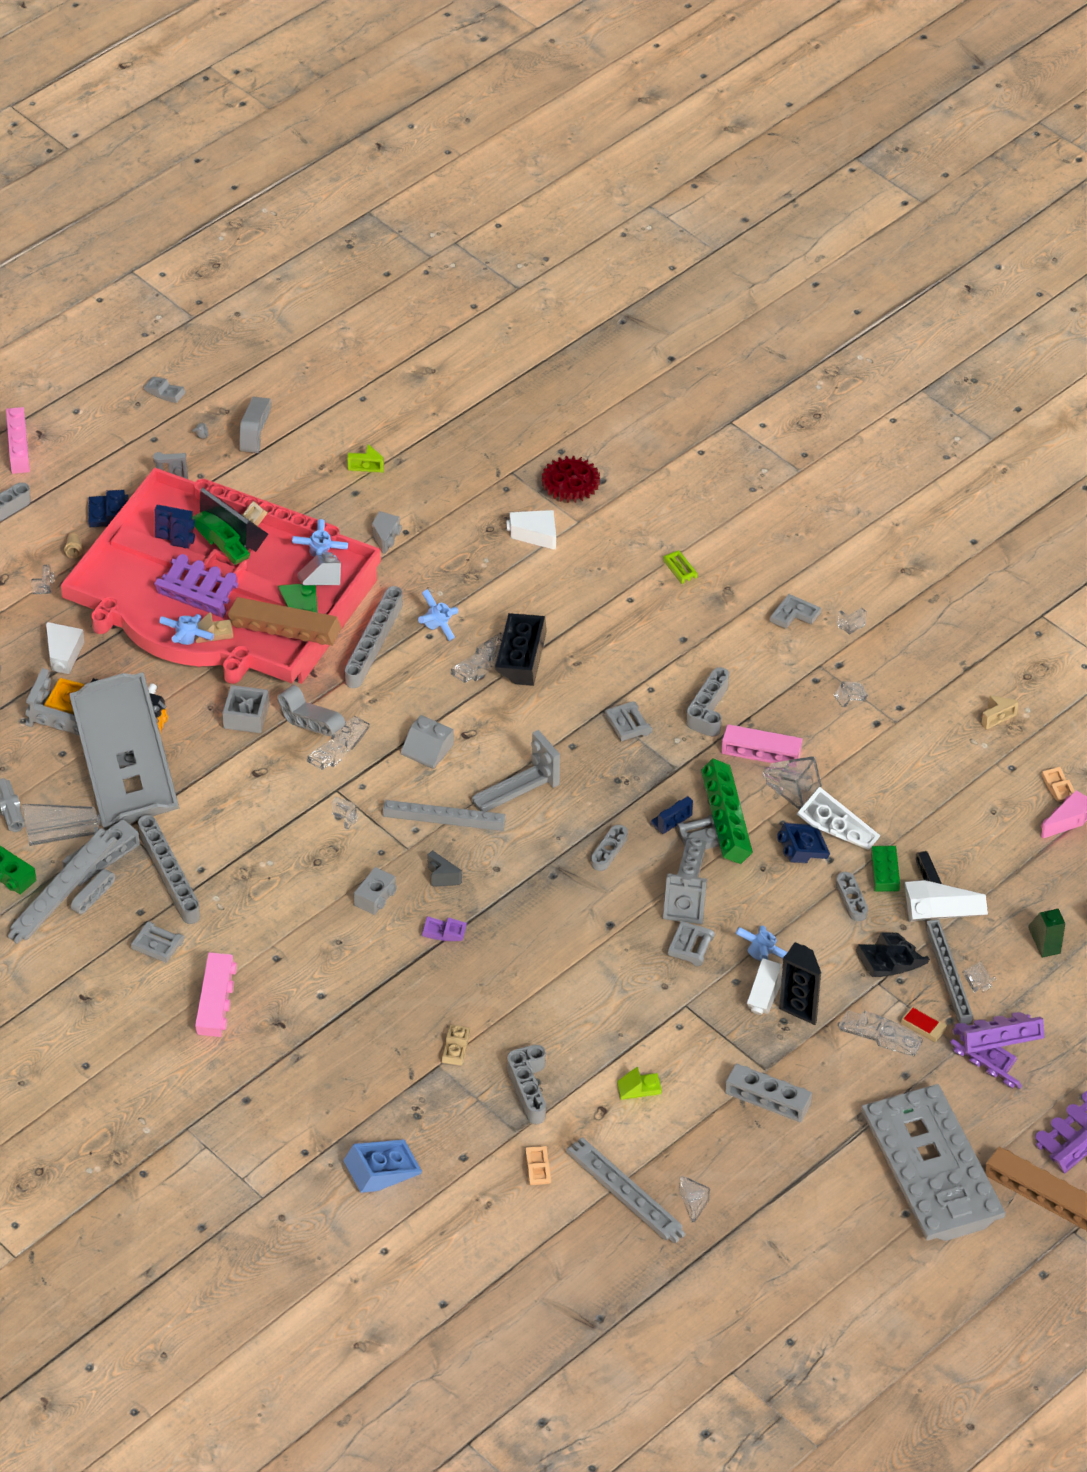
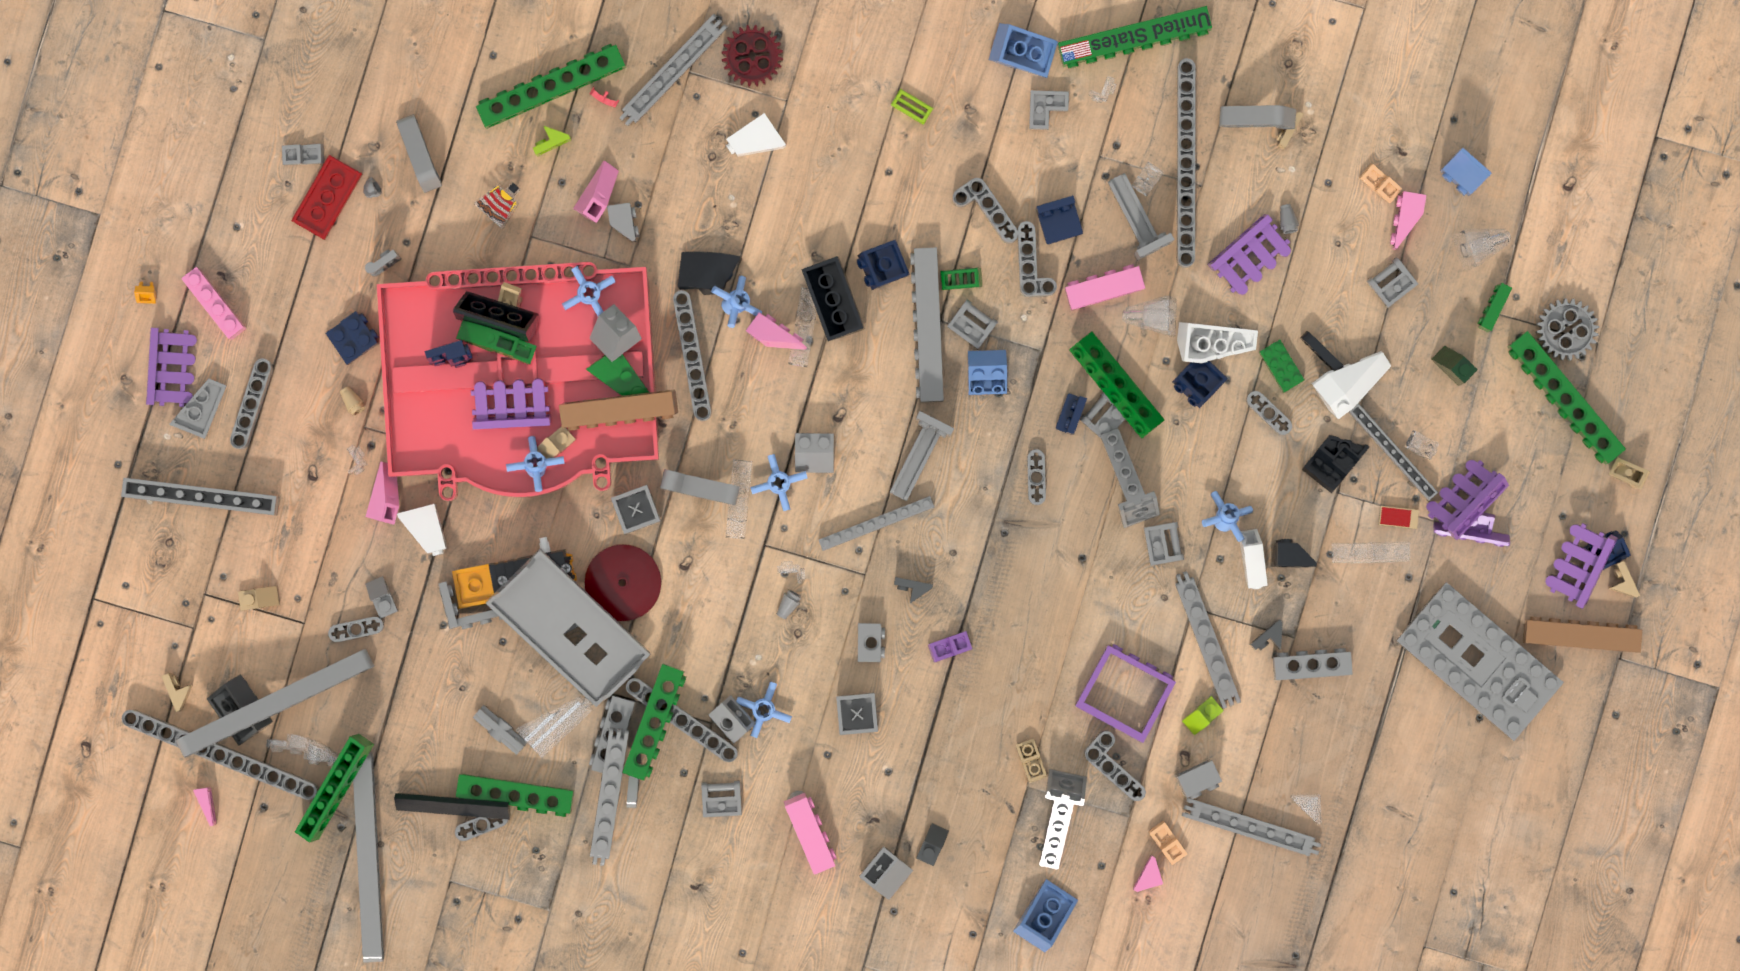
camera: 30 degrees left, 40 degrees up
(45, 611) = (384, 497): none -> bright pink slope
(142, 846) = (632, 766): none -> green brick
(161, 422) = (326, 197): none -> red tile
(198, 758) = (641, 579): none -> dark red dish
(212, 885) = (732, 719): none -> light grey brick
(245, 894) = (757, 713): none -> light blue bar
(260, 1058) = (886, 873): none -> light grey slope
(293, 479) = (499, 204): none -> torso
(318, 1065) = (932, 844): none -> dark grey slope
(324, 931) = (857, 713): none -> light grey brick
(325, 833) = (788, 604): none -> light grey cone
(381, 747) = (785, 486): none -> light blue bar
(383, 501) = (597, 193): none -> bright pink slope
(393, 429) = (579, 80): none -> green brick
(432, 460) = (603, 99): none -> coral piece
(438, 587) = (706, 270): none -> black slope
(446, 1090) = (1066, 791): none -> bracket
(453, 647) = (771, 335): none -> bright pink slope
(498, 461) = (672, 70): none -> light grey hinge
(501, 1180) = (1149, 876): none -> bright pink slope
(579, 648) = (882, 265): none -> dark blue plate
(591, 701) = (928, 324): none -> light grey brick
(601, 1120) = (1198, 779): none -> light grey brick
(607, 1054) = (1133, 660): none -> medium lavender window
(617, 756) = (987, 372): none -> medium blue slope
(653, 688) = (978, 278): none -> green slope
(682, 1033) = (1206, 640): none -> light grey hinge
(696, 638) = (988, 212): none -> light grey beam
(745, 1050) = (1273, 633): none -> dark grey slope
(755, 682) = (1059, 220): none -> dark blue bracket
(800, 567) = (1023, 50): none -> medium blue slope
(823, 722) = (1137, 218): none -> light grey bracket
(890, 697) = (1189, 154): none -> light grey beam
(903, 598) = (1135, 36): none -> green brick
(907, 769) = (1254, 244): none -> medium lavender fence
(958, 772) = (1288, 220): none -> light grey cone
(977, 680) = (1257, 116): none -> light grey beam
(1026, 856) = (1397, 287): none -> light grey plate

